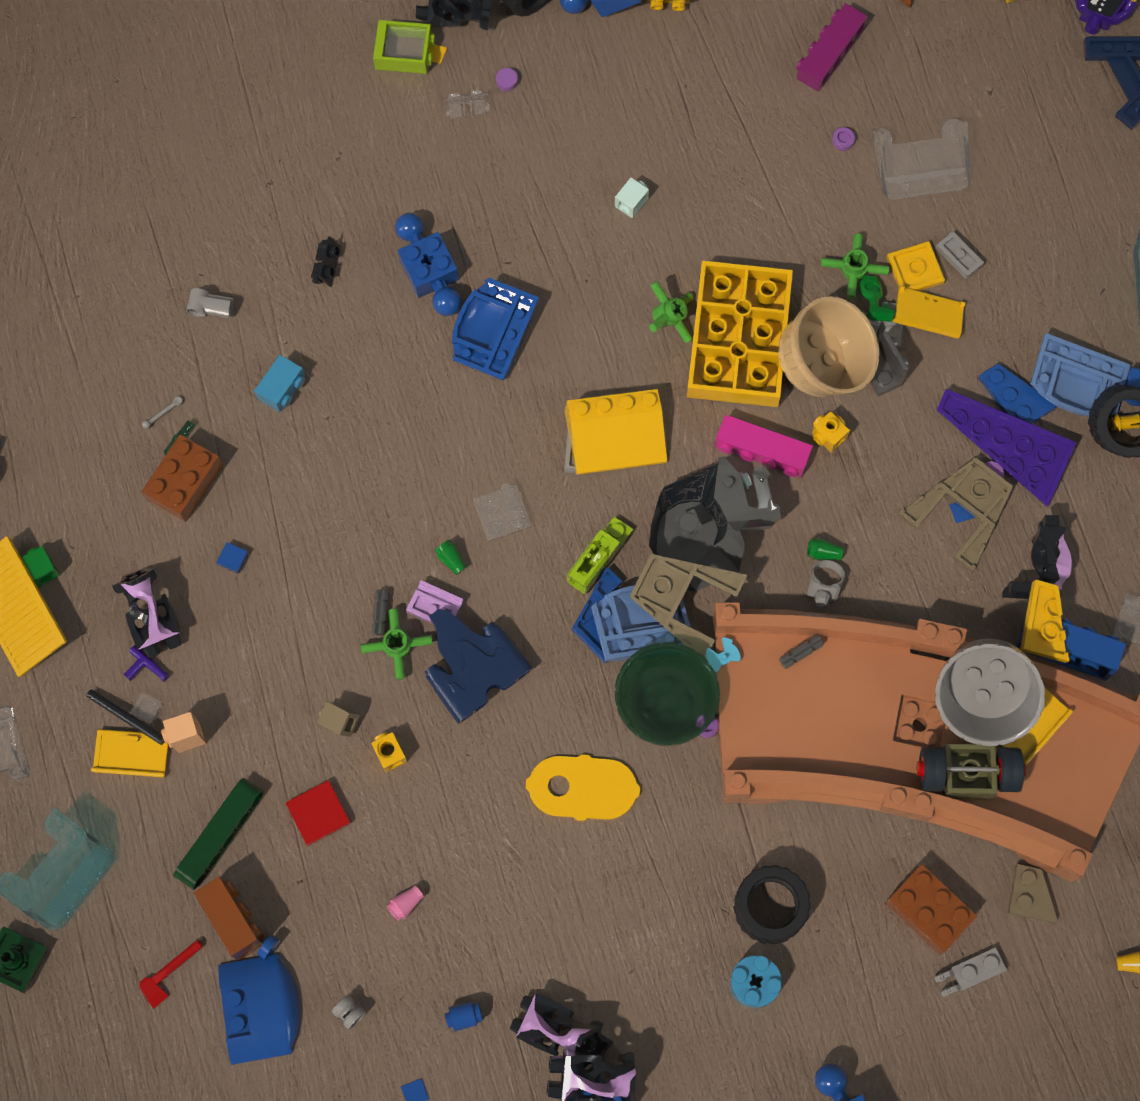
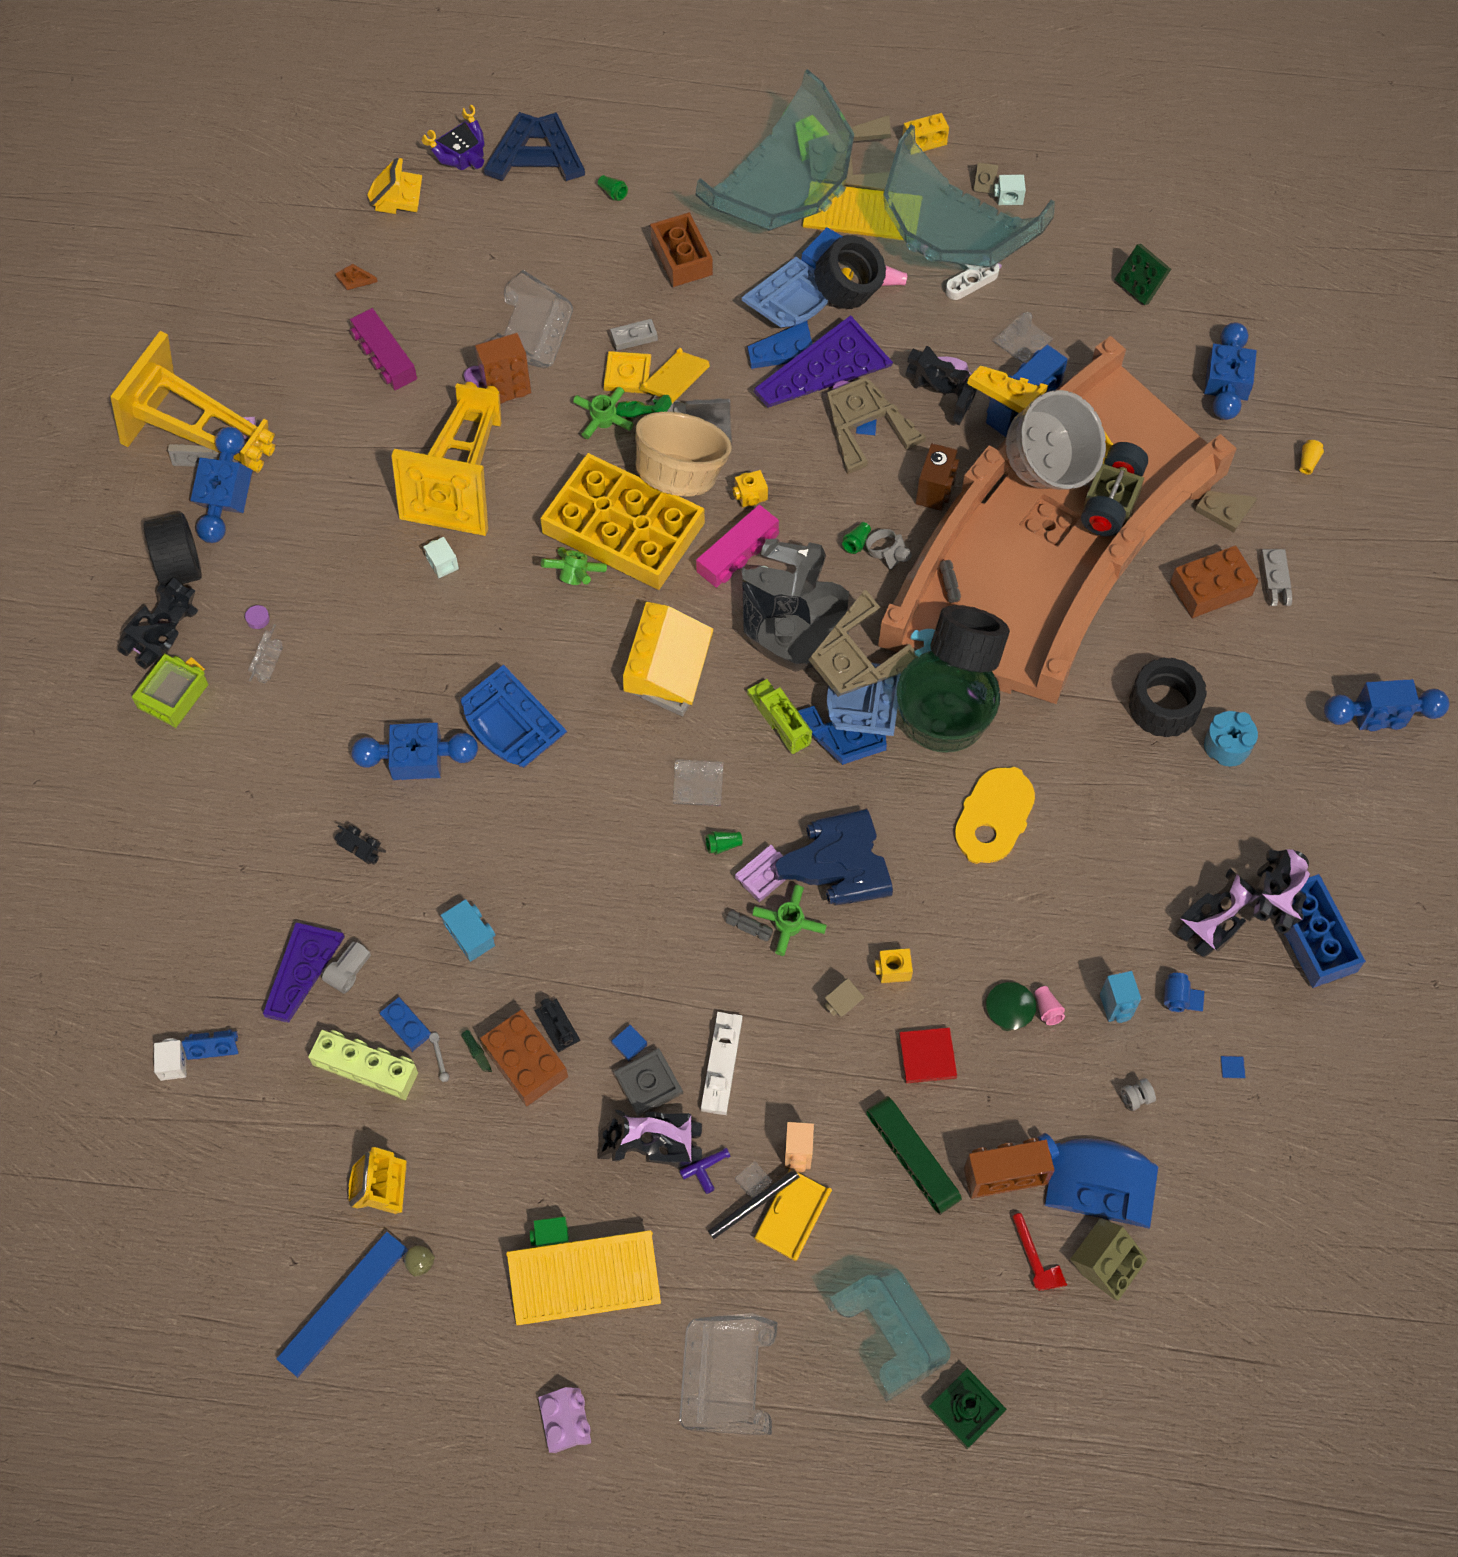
camera: 70 degrees left, 10 degrees down
(32, 415) = (378, 1181): none -> yellow piece
(79, 210) = (169, 1059): none -> white brick
(100, 226) = (202, 1046): none -> blue hinge
(130, 357) = (363, 1064): none -> yellowish green brick
(180, 373) = (405, 1024): none -> blue plate
(185, 1036) = (1109, 1258): none -> olive slope
(195, 269) = (302, 964): none -> dark purple wing
(201, 587) = (648, 1082): none -> dark grey plate
(225, 492) = (557, 1024): none -> black hinge
(243, 641) = (721, 1064): none -> white hinge
(393, 869) = (1011, 1005): none -> dark green dish
(431, 963) = (1120, 997): none -> dark azure brick
(468, 1036) = (1196, 1000): none -> blue sticker
(685, 171) = (448, 490): none -> yellow piece
(749, 686) = (969, 638): none -> black tyre
(848, 157) = (504, 366): none -> dark orange brick
(922, 597) = (937, 477): none -> reddish brown brick
(1079, 254) = (681, 249): none -> dark orange brick
(1127, 162) = (613, 187): none -> green cone

